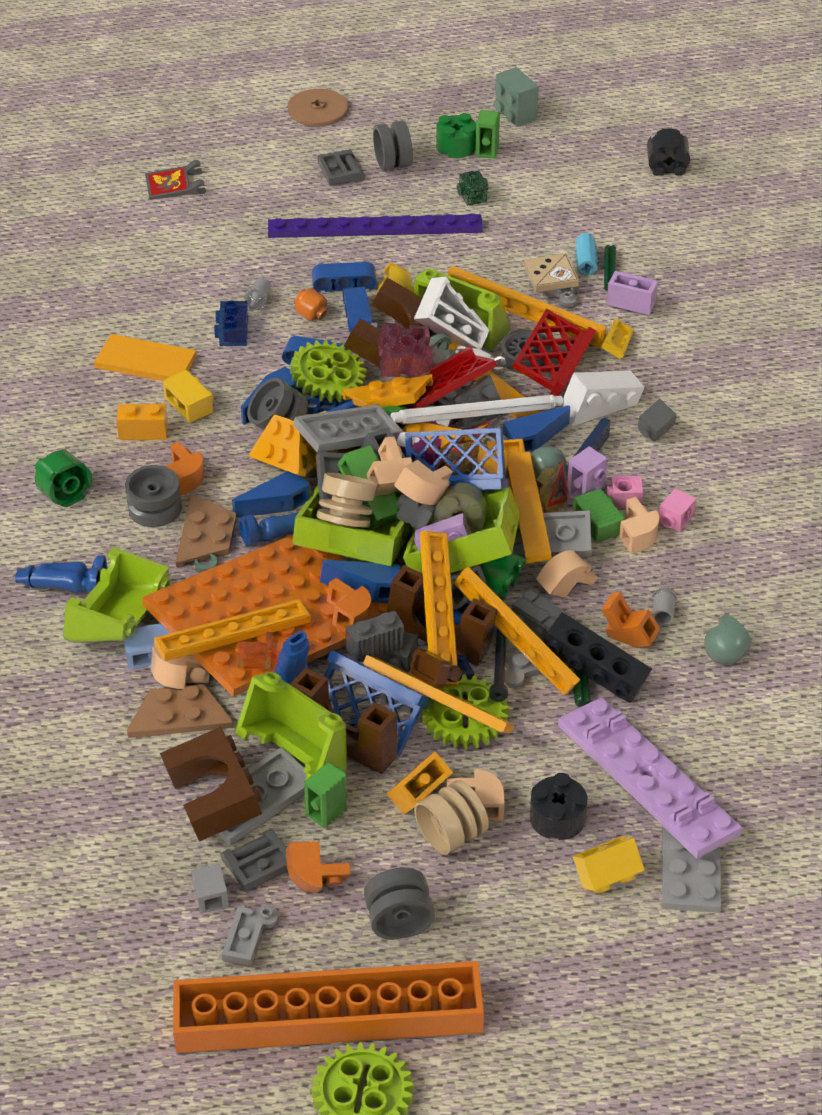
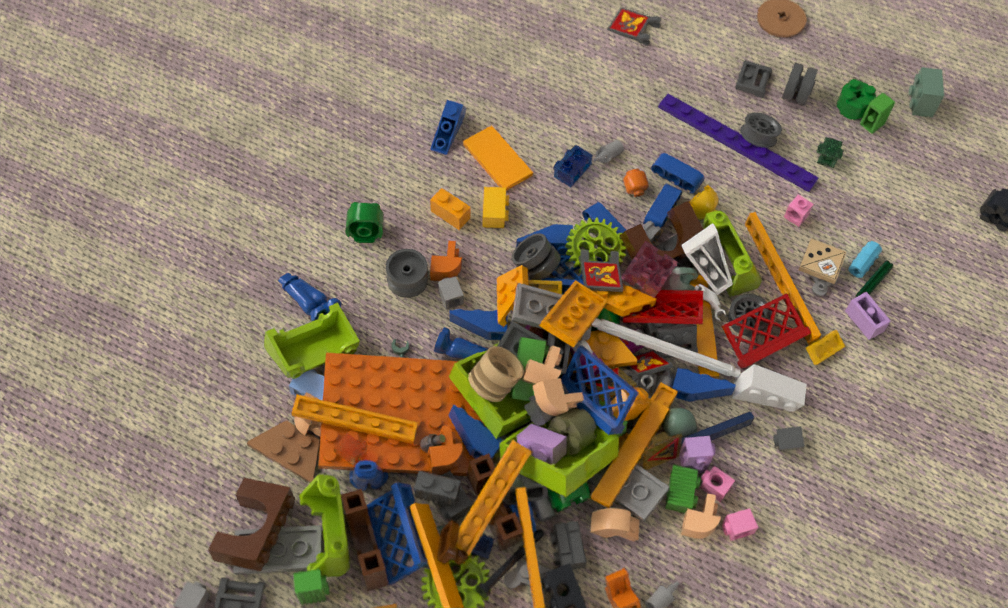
camera: 35 degrees right, 15 degrees up
(66, 356) = (448, 126): none -> blue slope
(205, 531) = (420, 321): medium nougat wing -> none
(215, 488) = (450, 292): none -> light grey brick
(326, 607) = (431, 441): none -> flat silver cylinder
(360, 381) = (601, 275): none -> flag
(373, 413) = (574, 313): none -> light orange tile
(390, 201) = (760, 129): none -> dark grey wheel
(489, 247) = (798, 210): none -> bright pink brick

